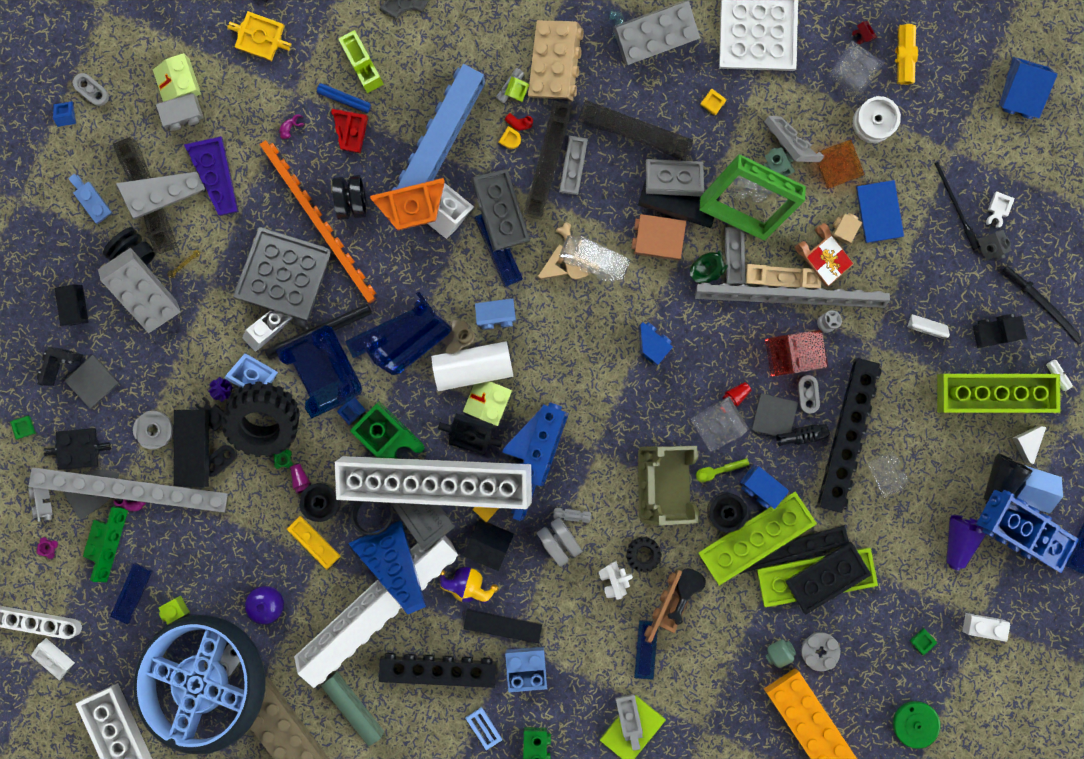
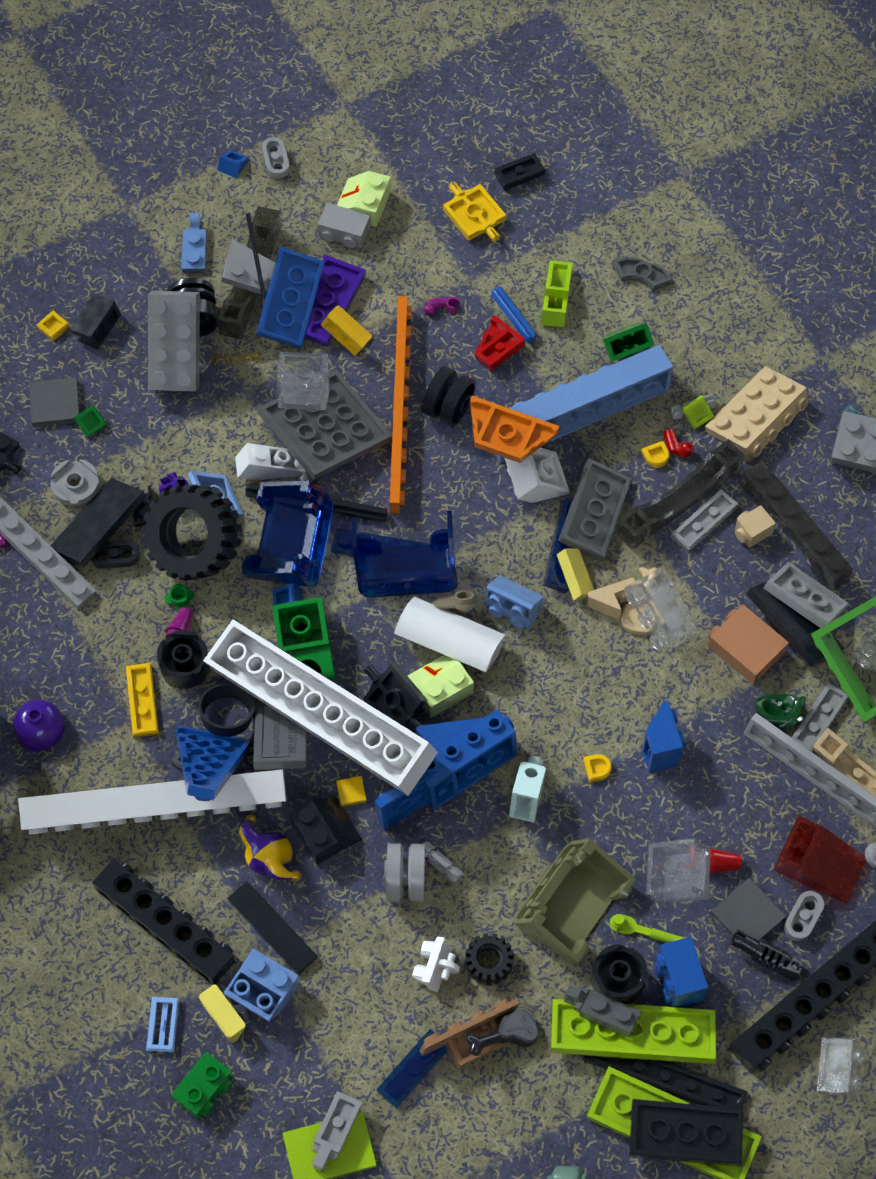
camera: 35 degrees right, 25 degrees down
(44, 327) = (53, 325): none -> yellow tile
(52, 358) = (34, 353): black bracket -> none
(127, 380) = (90, 421): none -> green tile
(175, 213) = (256, 258): none -> black piece
(188, 196) = (290, 297): none -> blue tile
(243, 192) = (346, 330): none -> yellow panel
(247, 259) = (302, 381): none -> clear brick
(352, 709) = (40, 894): sand green brick -> none
(437, 74) = (627, 341): none -> green slope
(514, 701) = (222, 1013): none -> light yellow slope
(520, 265) = (575, 573): none -> light yellow slope
(596, 439) = (527, 789): none -> light aqua torso
(608, 149) = (754, 526): none -> tan brick
(622, 385) = (597, 767): none -> yellow tile
(733, 541) = (603, 1010): none -> dark grey hinge

